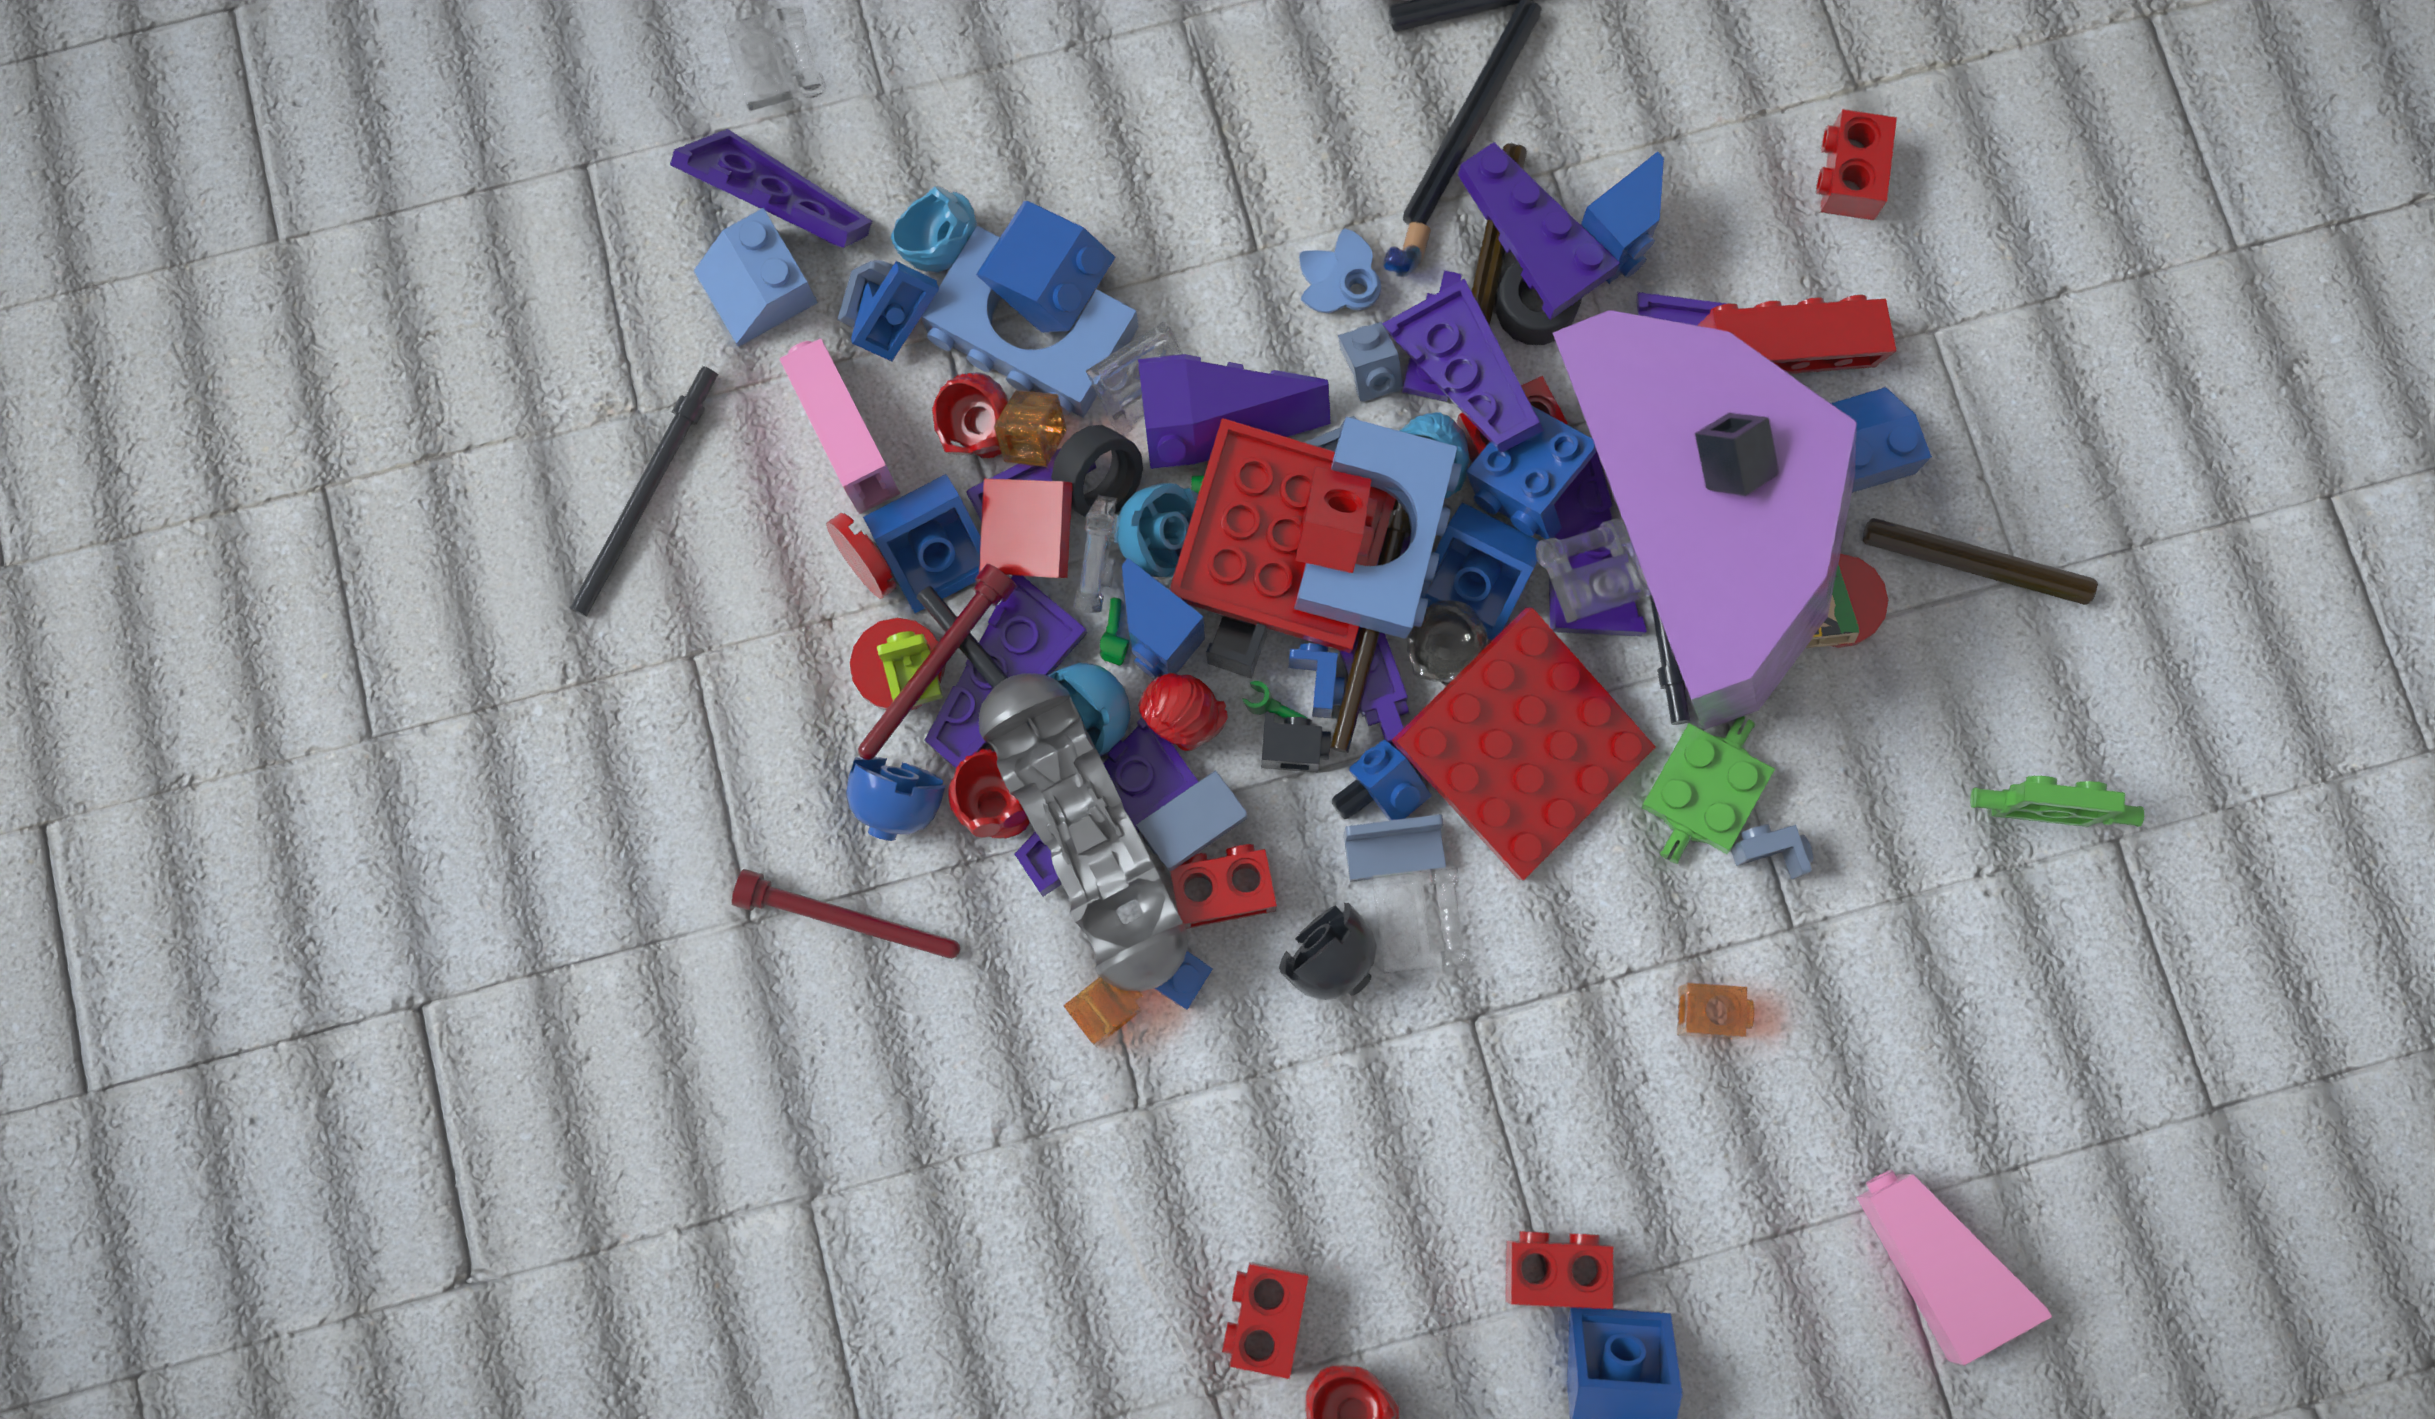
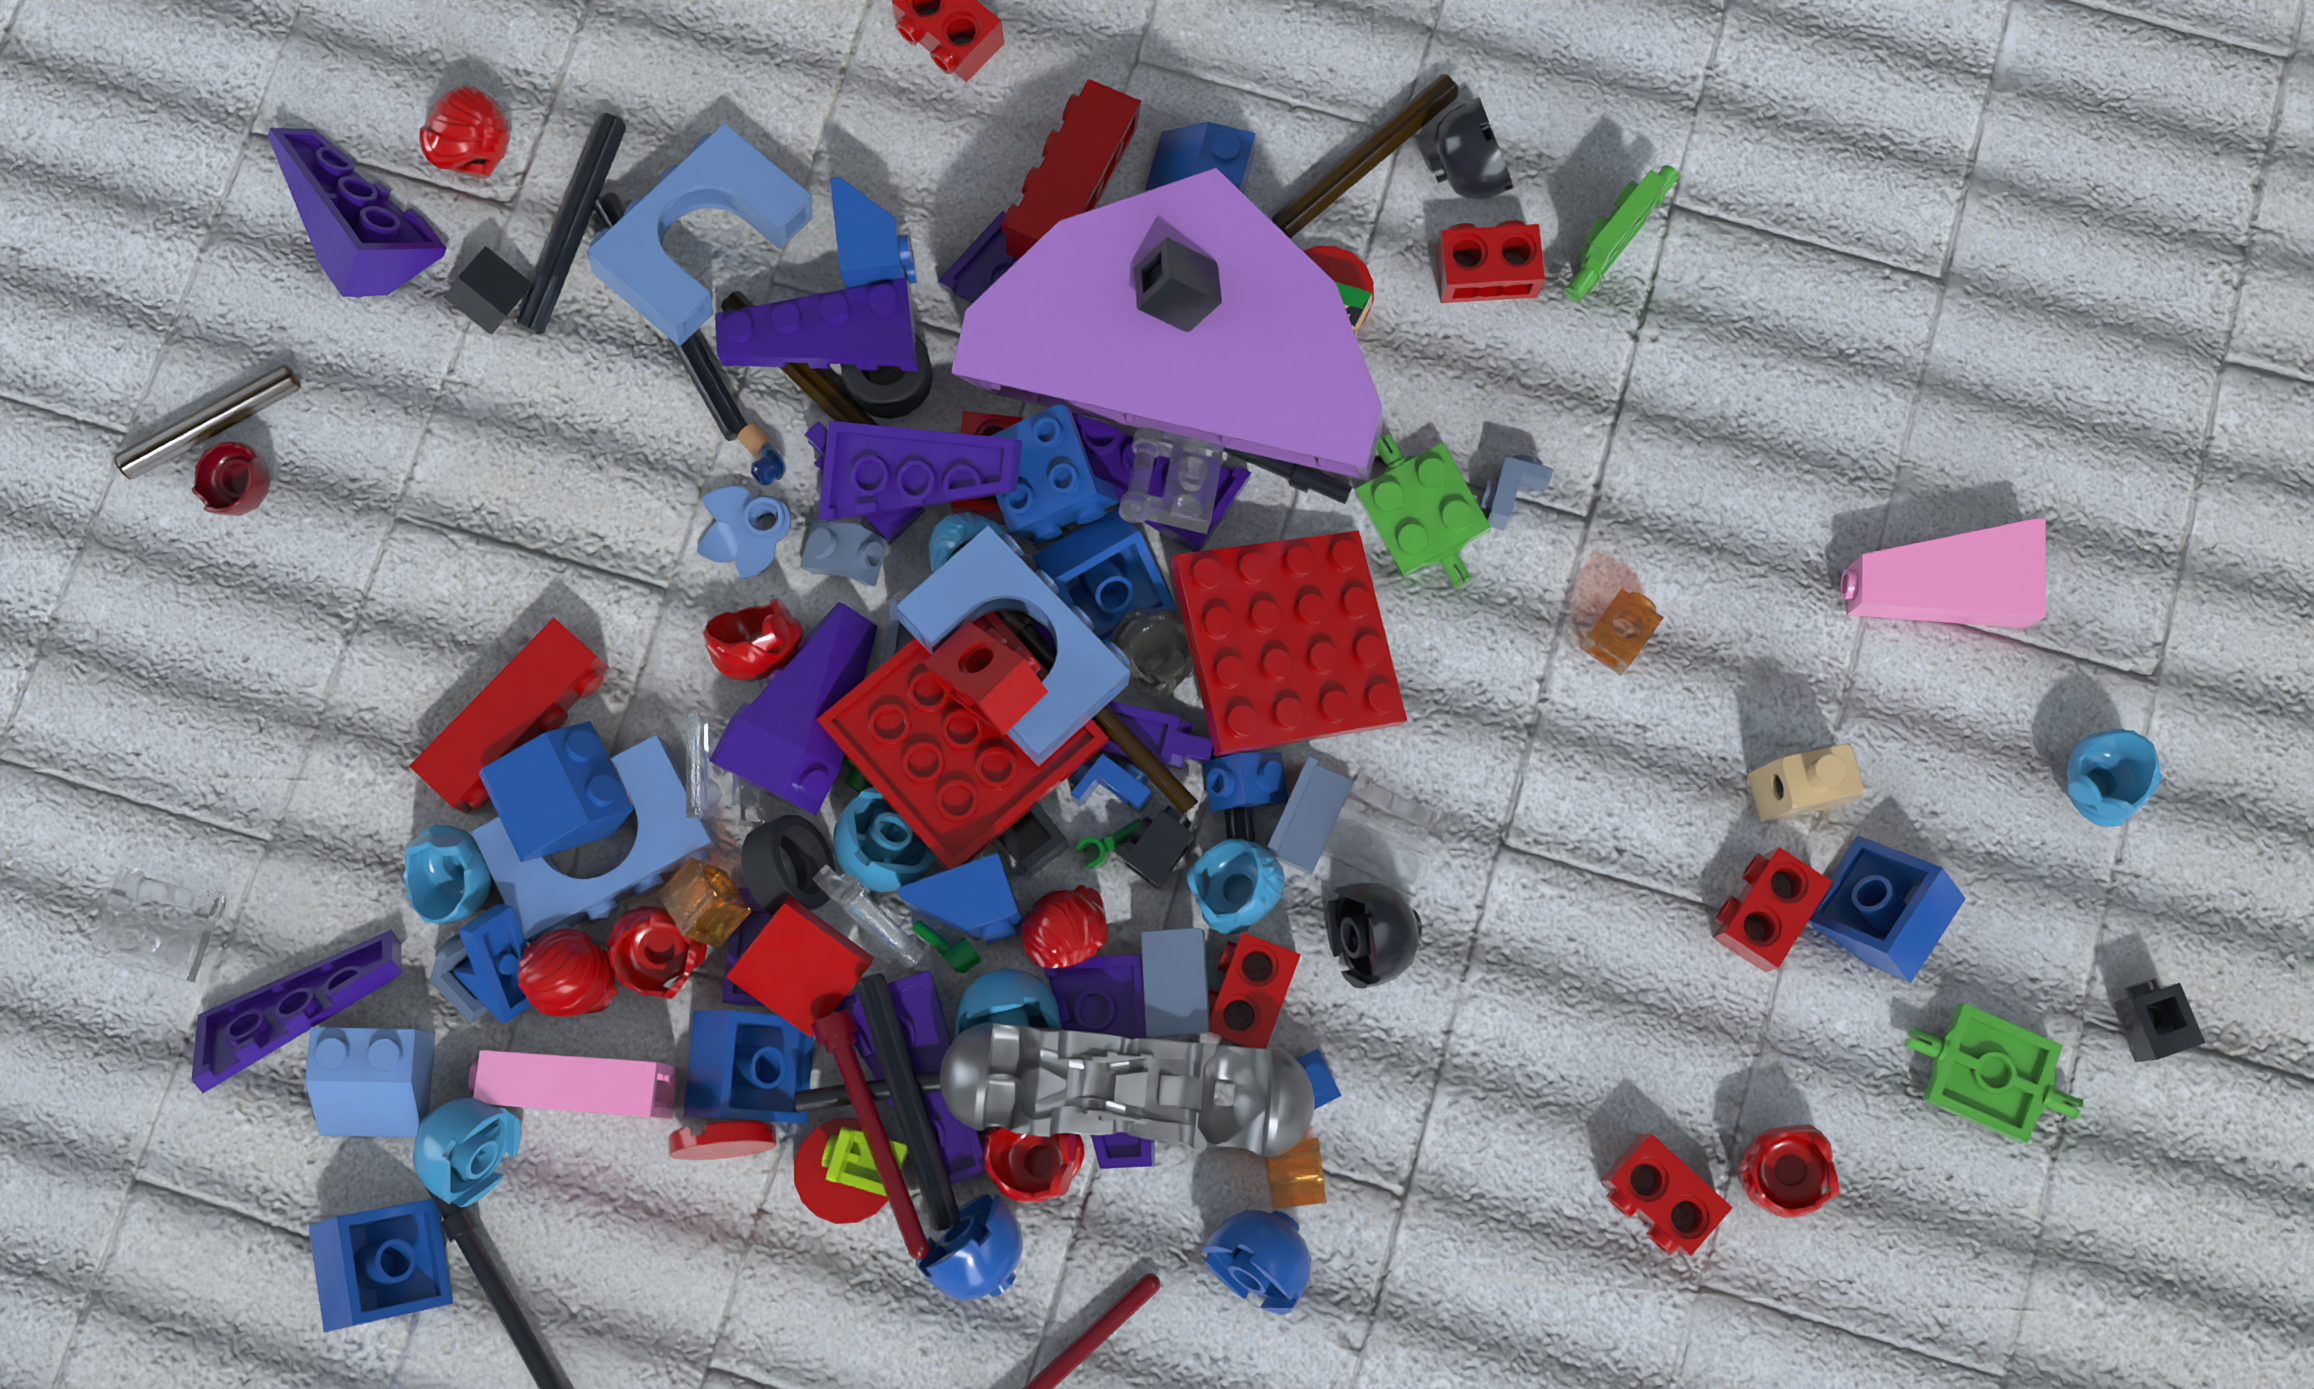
camera: 60 degrees left, 0 degrees up
(626, 372) = (379, 1264): none -> blue slope
(743, 375) = (462, 1147): none -> dark azure cylinder
(914, 363) = (566, 974): none -> red hair
(973, 673) = (908, 1101): none -> black axle
(1022, 1020) = (1261, 1255): none -> blue cylinder
(1098, 198) = (510, 711): none -> red brick
(1255, 335) = (753, 640): none -> red hair
(1302, 829) = (1240, 887): none -> dark azure hair
(1607, 71) = (717, 174): none -> medium blue arch
(1684, 1240) = (1809, 781): none -> tan torso
(1946, 724) = (1492, 275): none -> red brick
(2040, 642) = (1469, 154): none -> black cylinder

